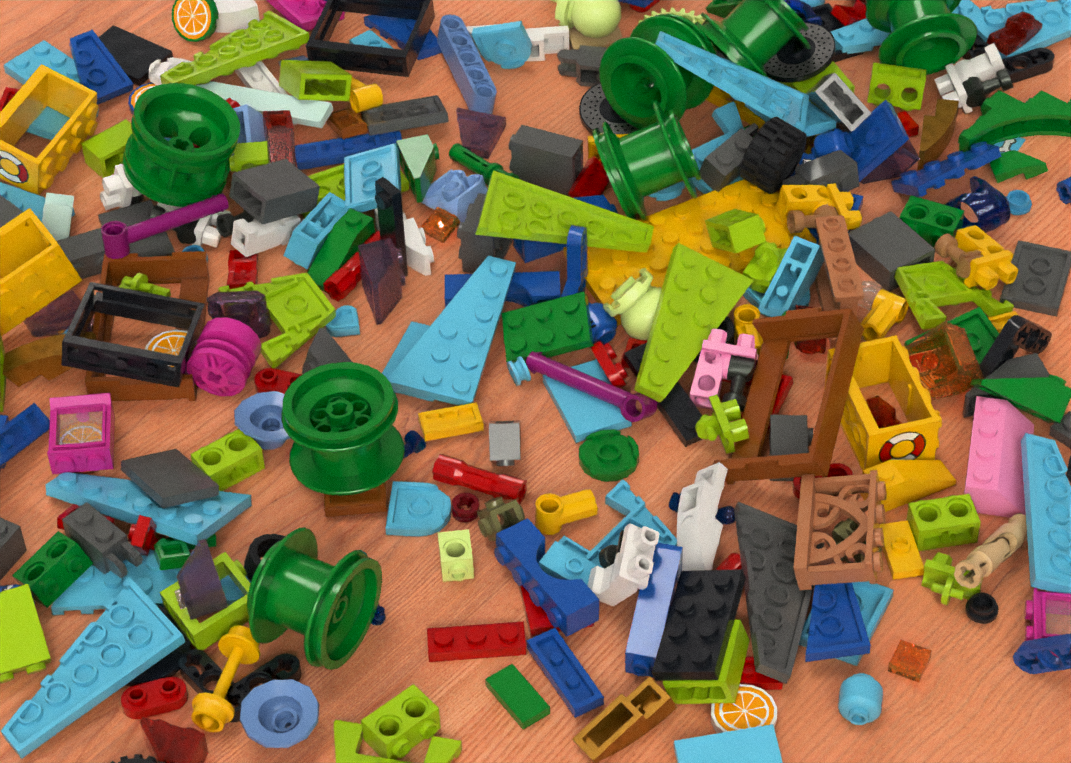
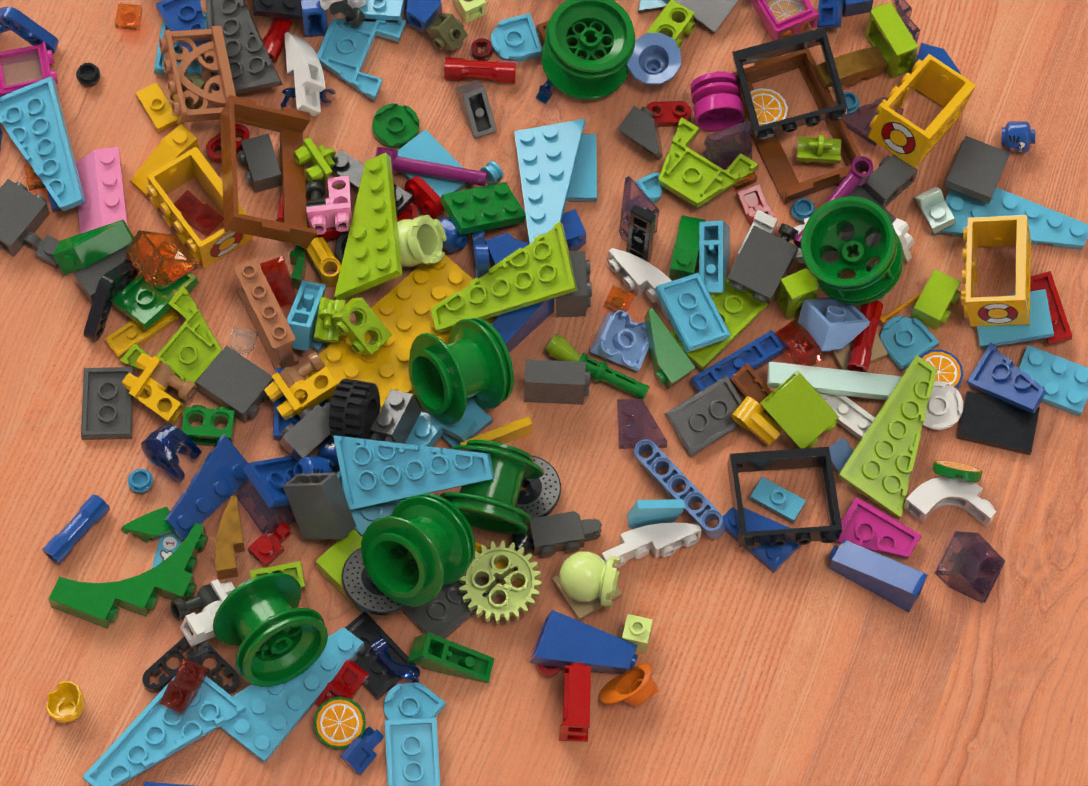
camera: 155 degrees right, 20 degrees up
(348, 276) = (669, 223): red axle -> none
(450, 421) = (524, 114): yellow plate -> none
(555, 511) = (407, 62): yellow piece -> none
(591, 180) = (517, 396): red plate -> none
(885, 311) = (223, 316): yellow piece -> none
(941, 579) = (113, 83): lime hips -> none
(943, 522) = (127, 126): lime brick -> none
(992, 552) = (84, 106): tan piece -> none

